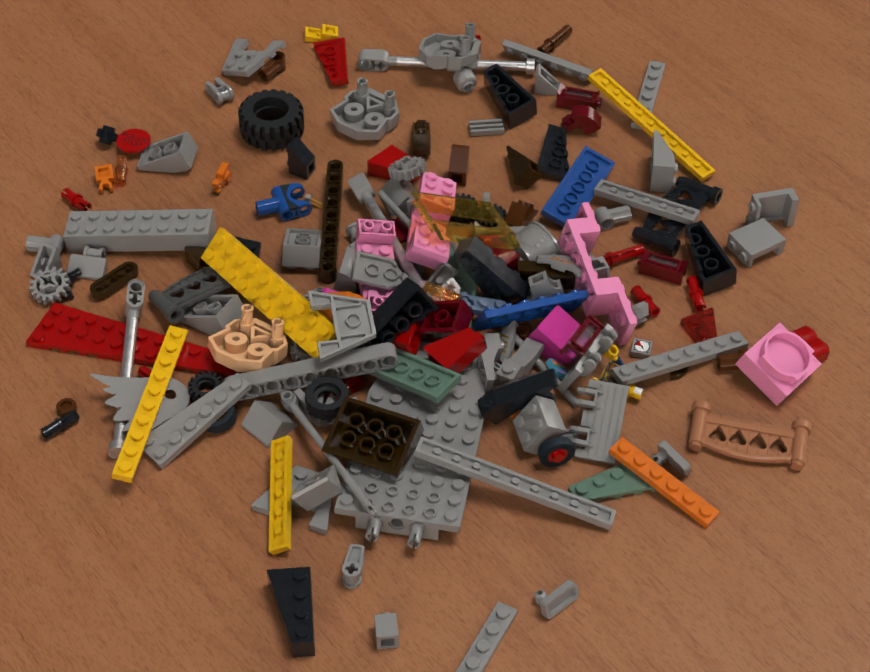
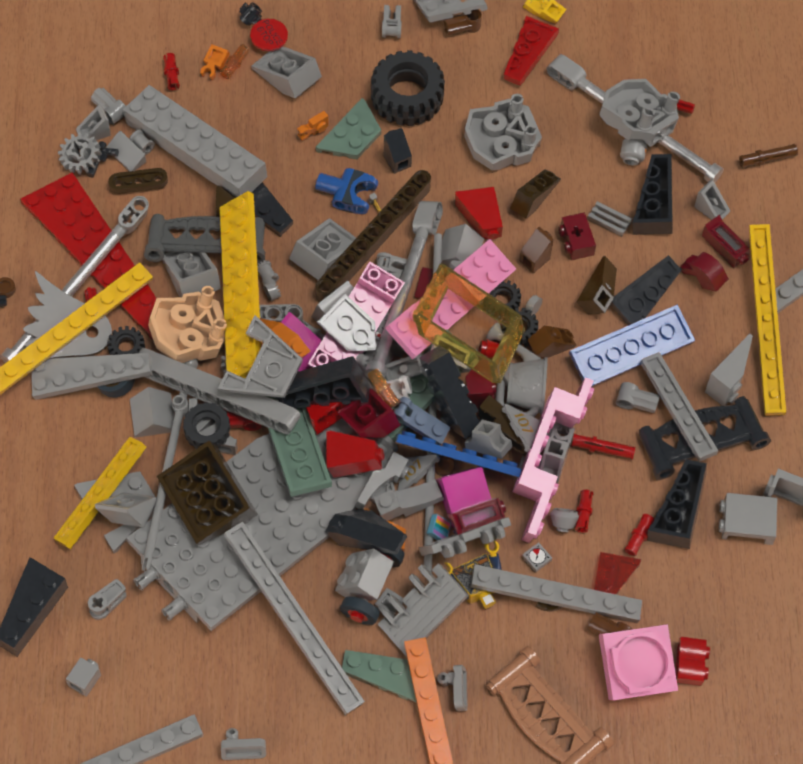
camera: 35 degrees right, 15 degrees up
(253, 170) = (352, 134): none -> sand green wing
(407, 168) = (477, 226): light grey gear -> none
(481, 146) = (577, 236): none -> dark red brick
(541, 58) = (741, 184): light grey plate -> none
(662, 267) = (633, 485): dark red window -> none

